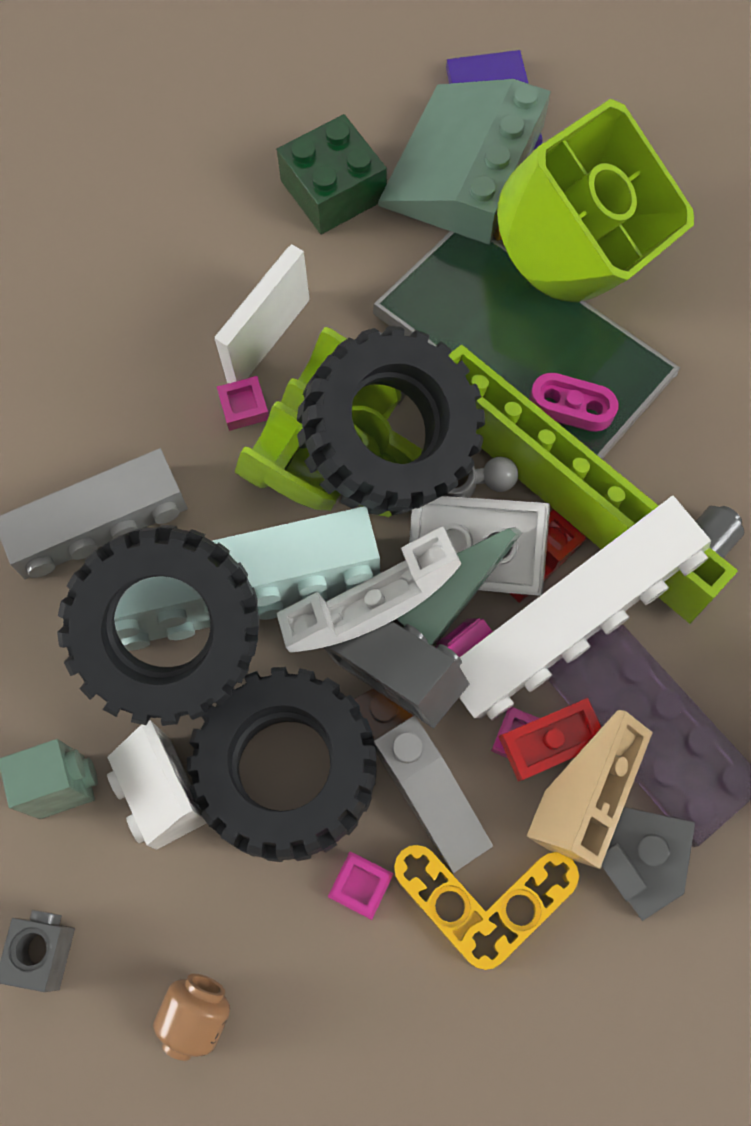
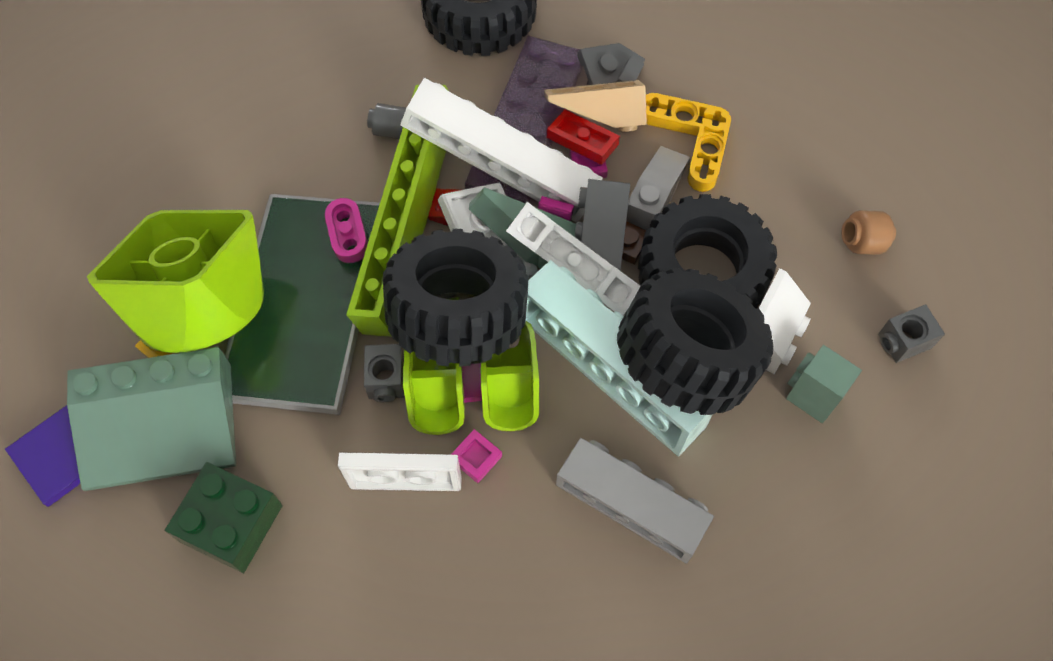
camera: 125 degrees left, 5 degrees down
(360, 885) = (737, 191): dark pink tile -> none

